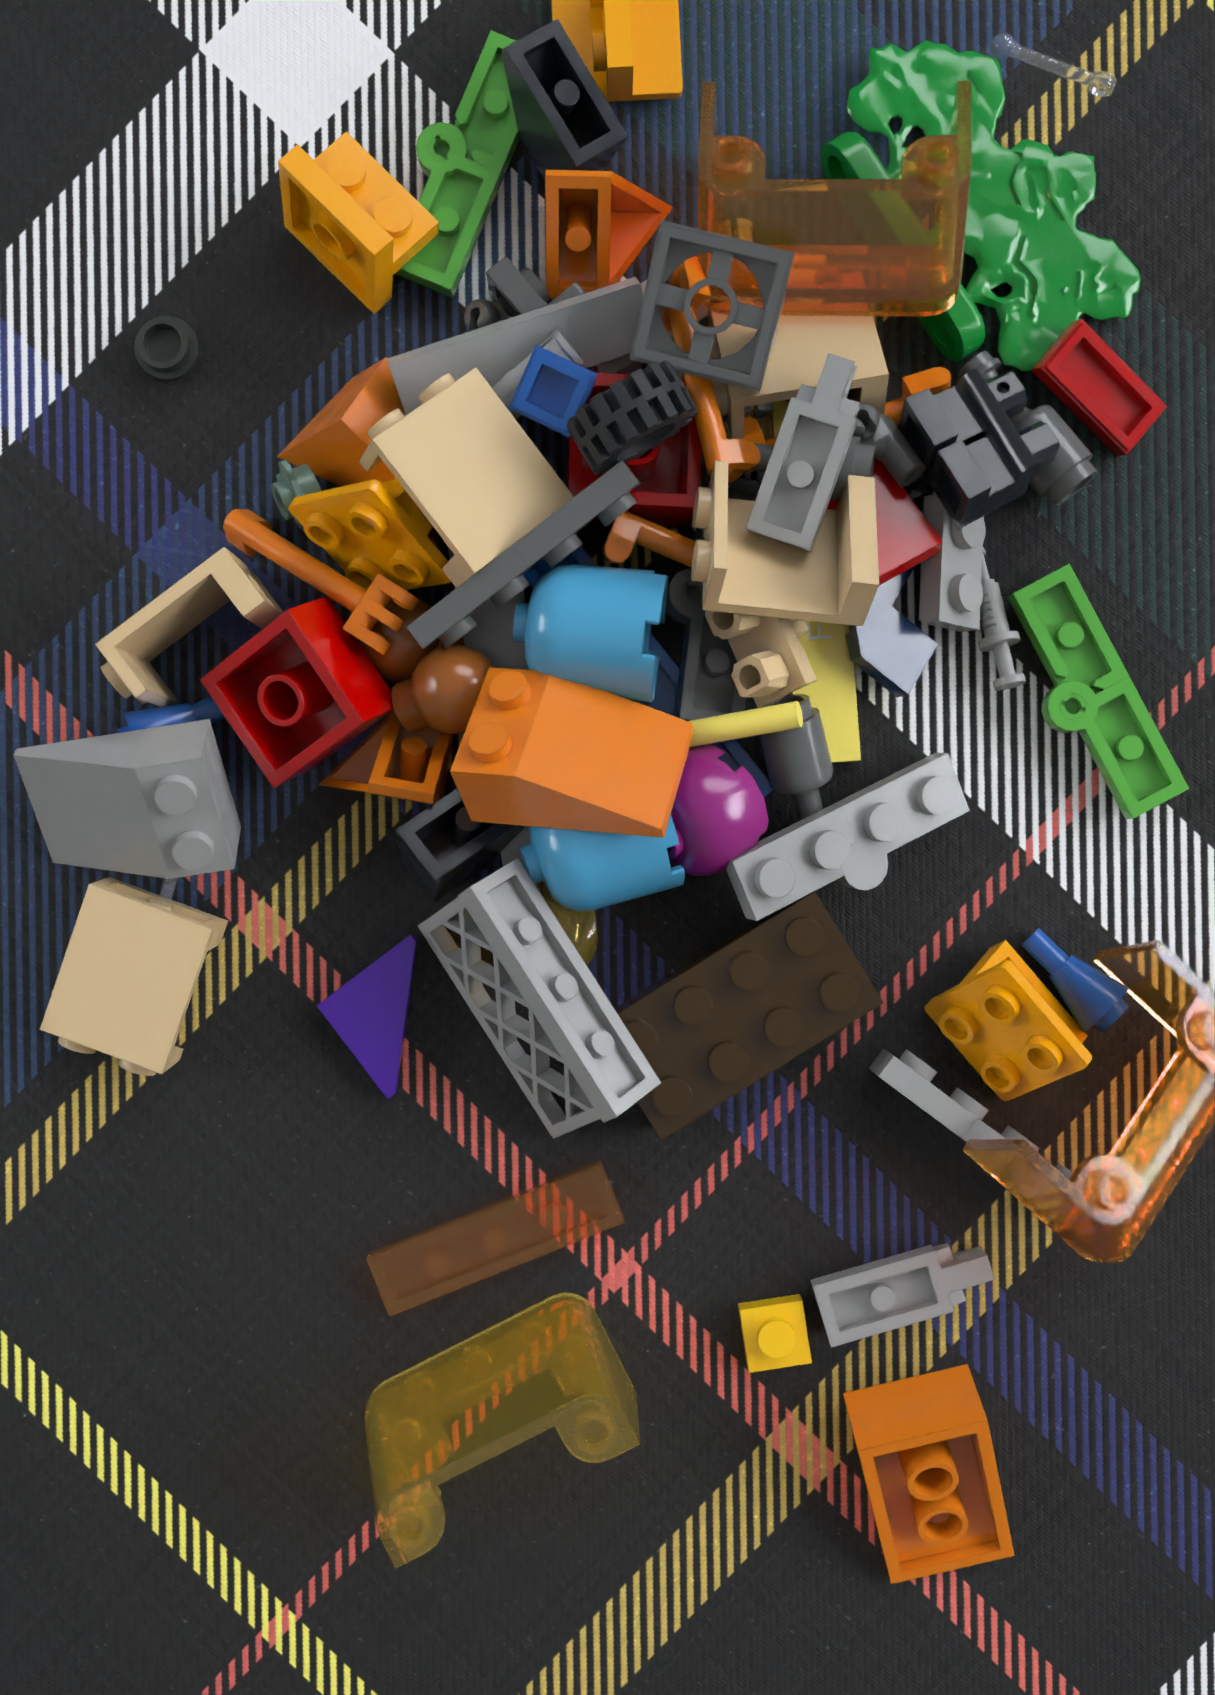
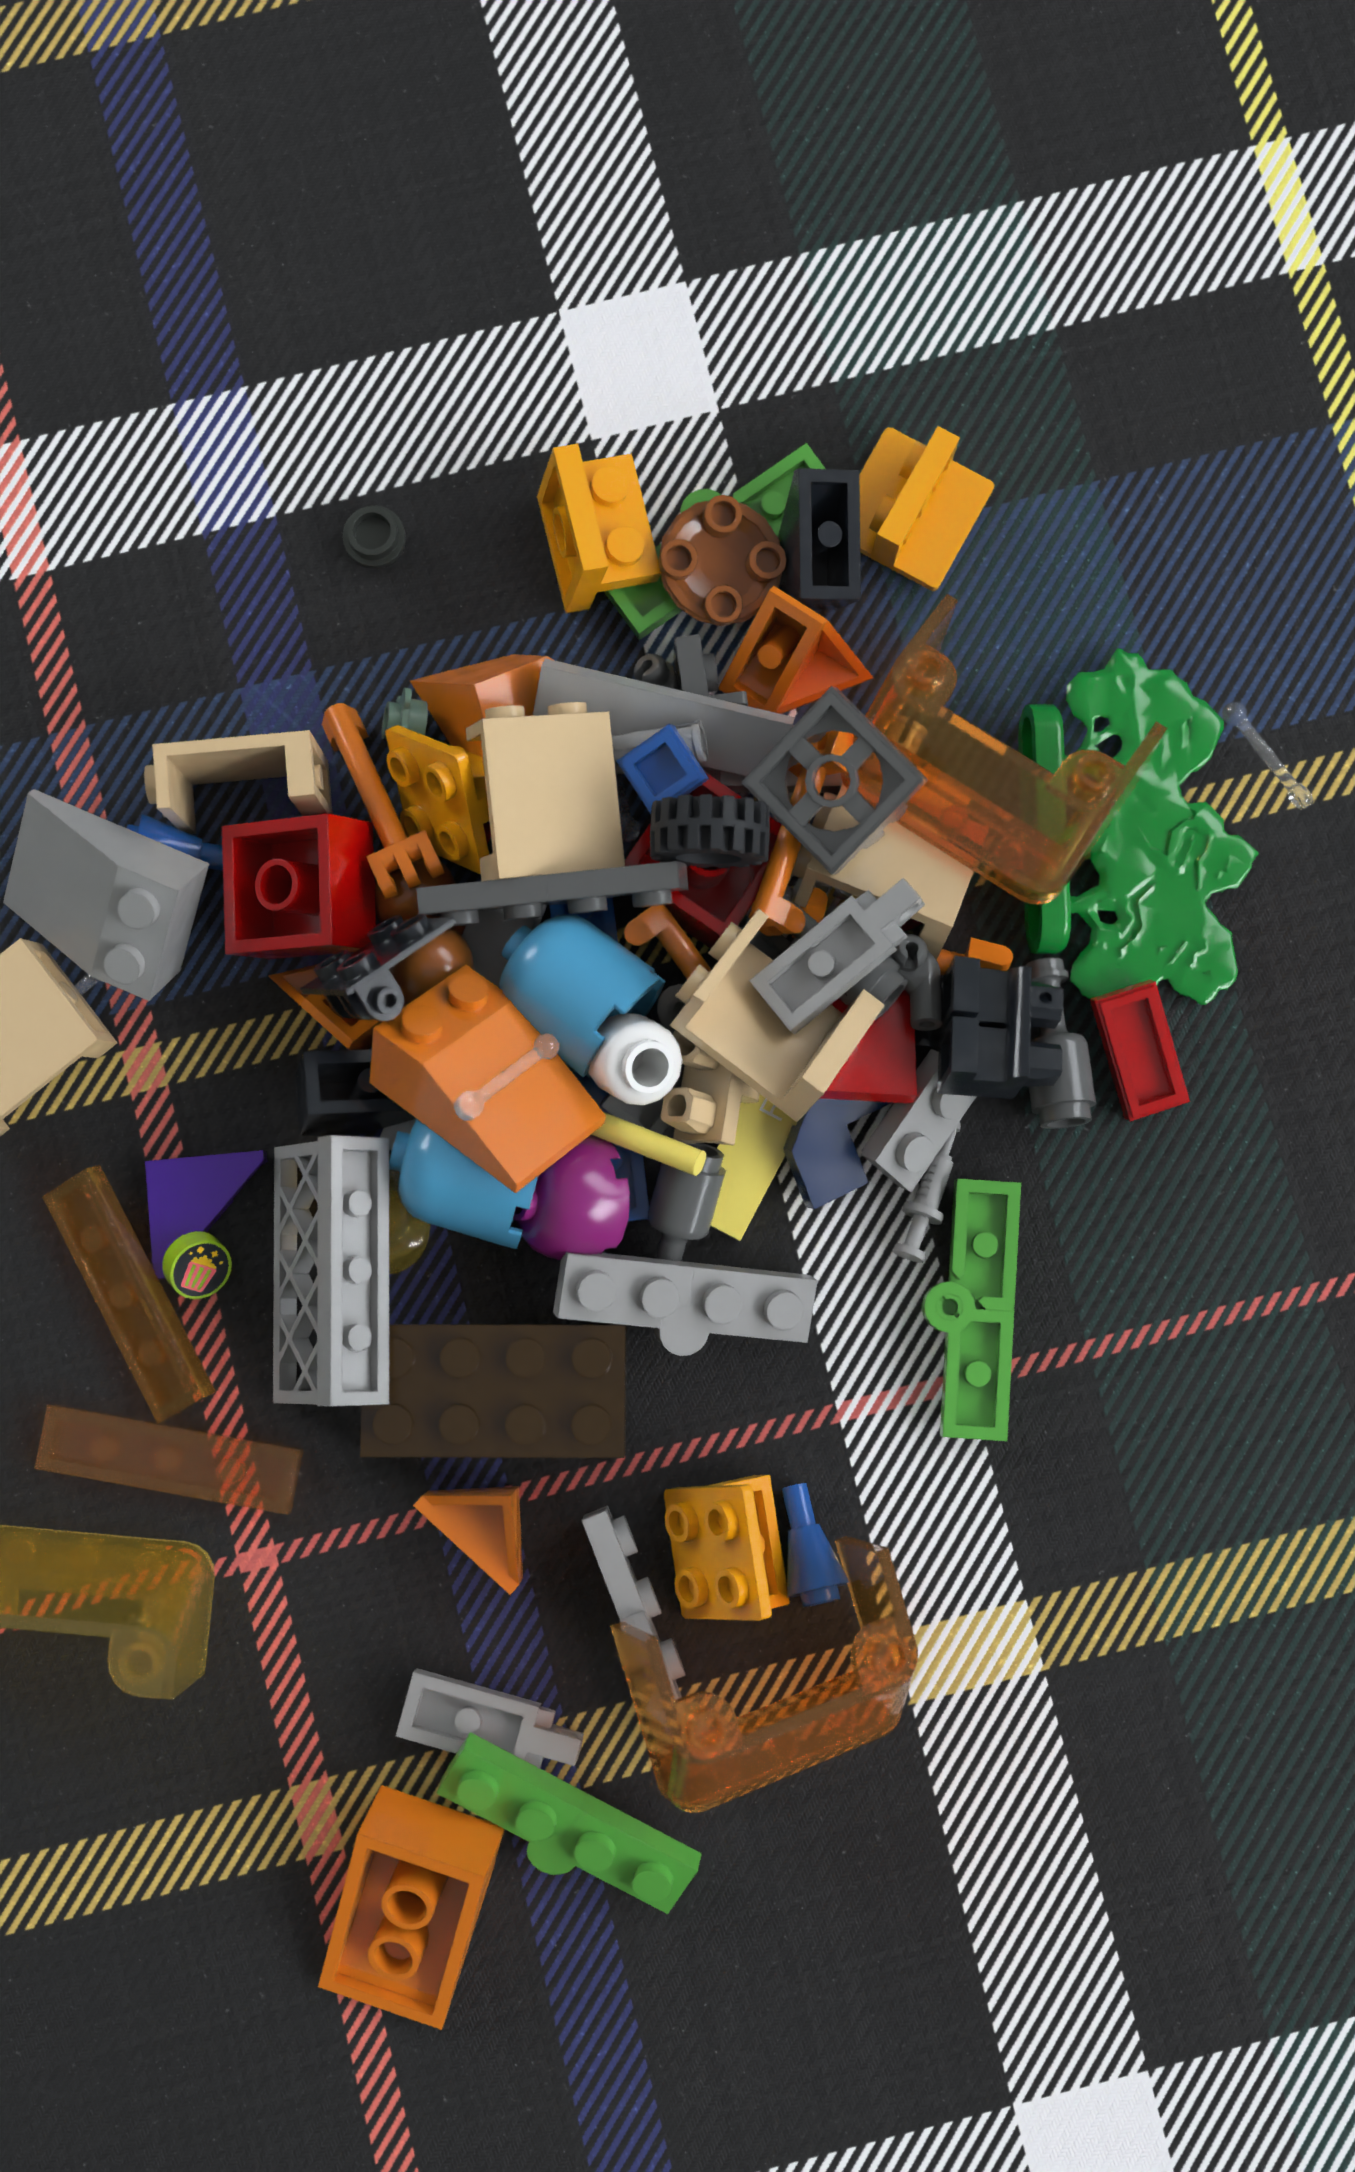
camera: 25 degrees right, 5 degrees down
(374, 1124) = (128, 1293): none -> clear orange tile
(412, 735) = (361, 982): none -> black hinge
(416, 1065) = (196, 1265): none -> tile
(483, 179) = (720, 561): none -> dark orange dish
(578, 783) = (471, 1103): none -> clear hinge
(691, 658) = (636, 1059): none -> white head
(774, 1333) = (356, 1695): yellow plate -> none
(794, 1131) = (483, 1525): none -> orange slope
(1018, 1329) = (568, 1825): none -> bright green hinge

